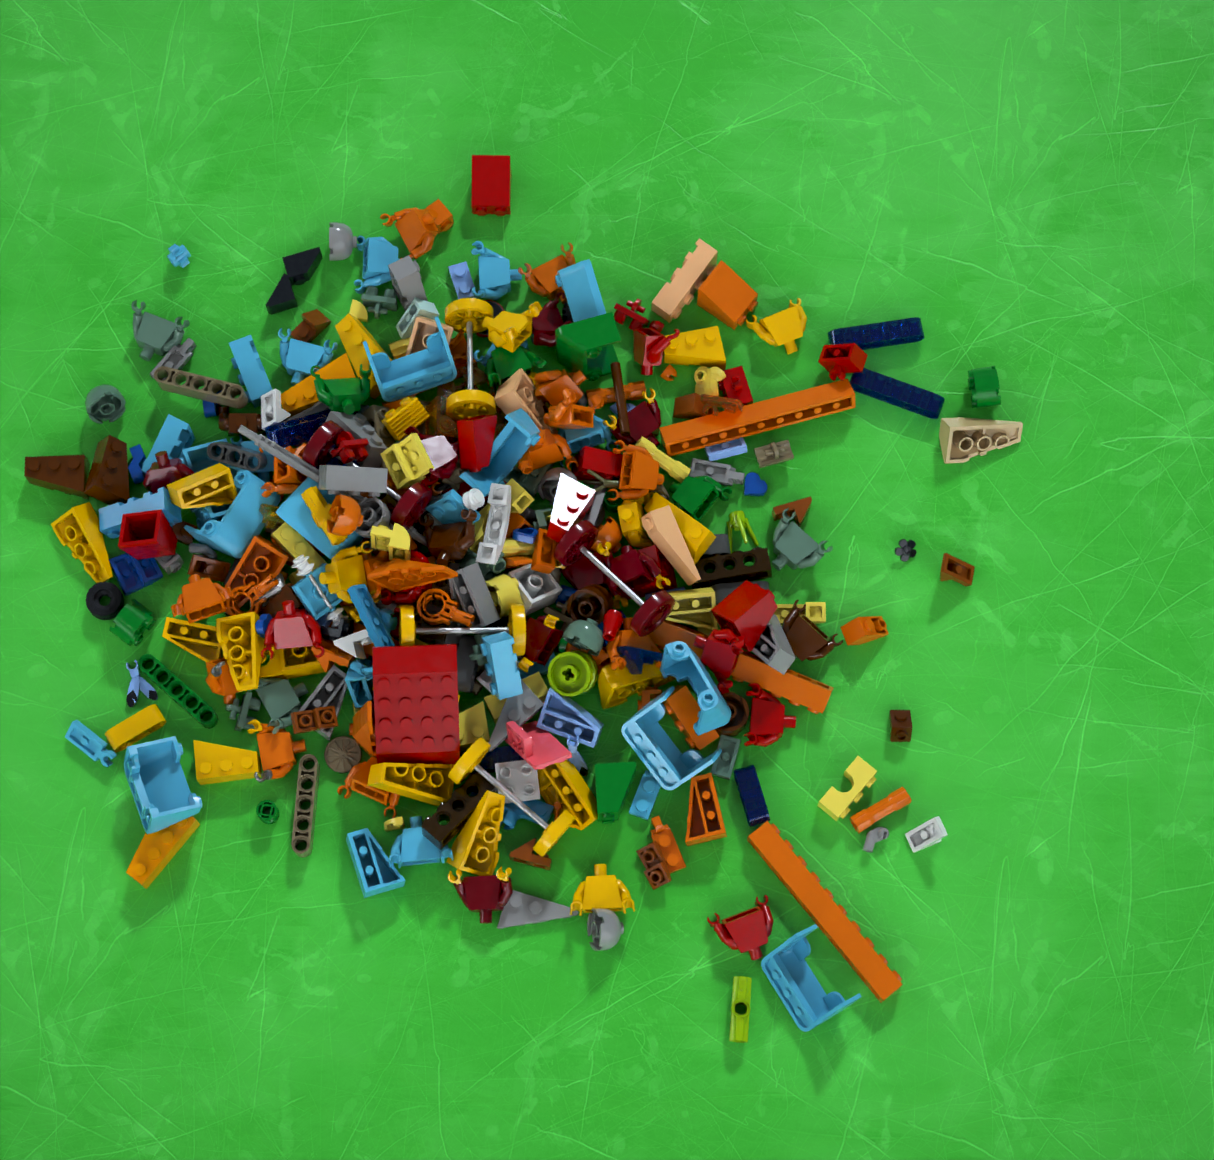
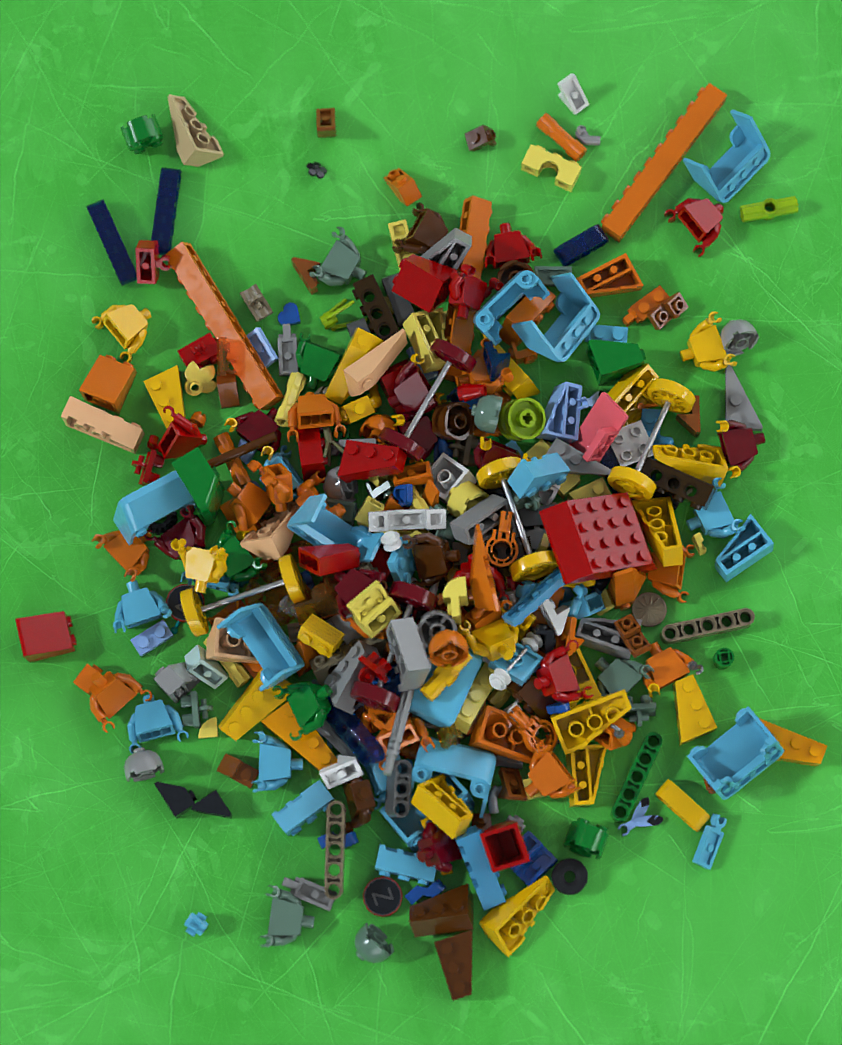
camera: 105 degrees left, 5 degrees up
(145, 425) = (382, 896): none -> black tile

